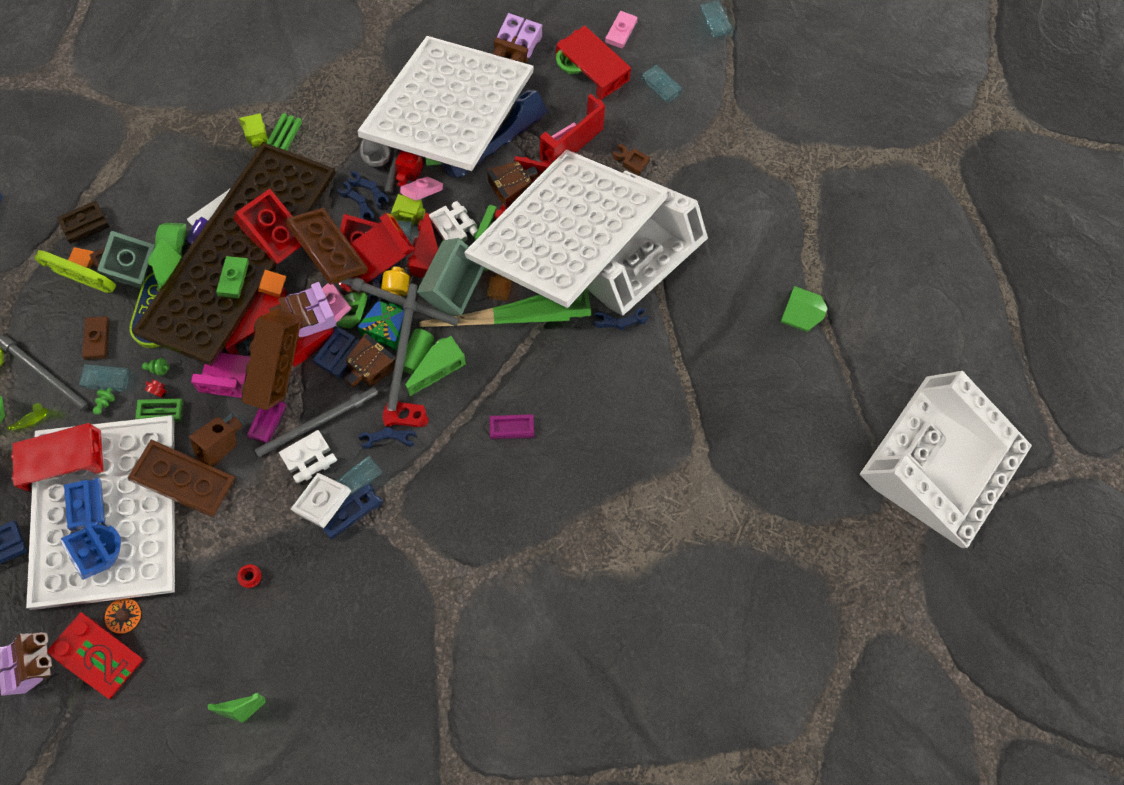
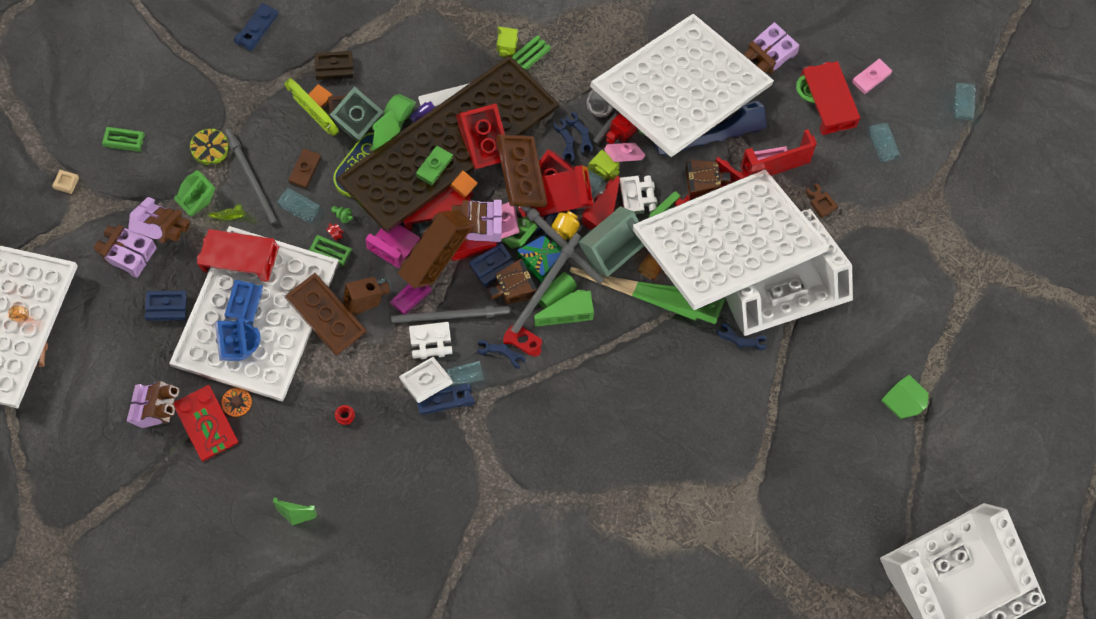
camera: 25 degrees right, 0 degrees up
(102, 401) = (288, 224): bright green hair -> none
(511, 426) = (606, 388): magenta tile -> none

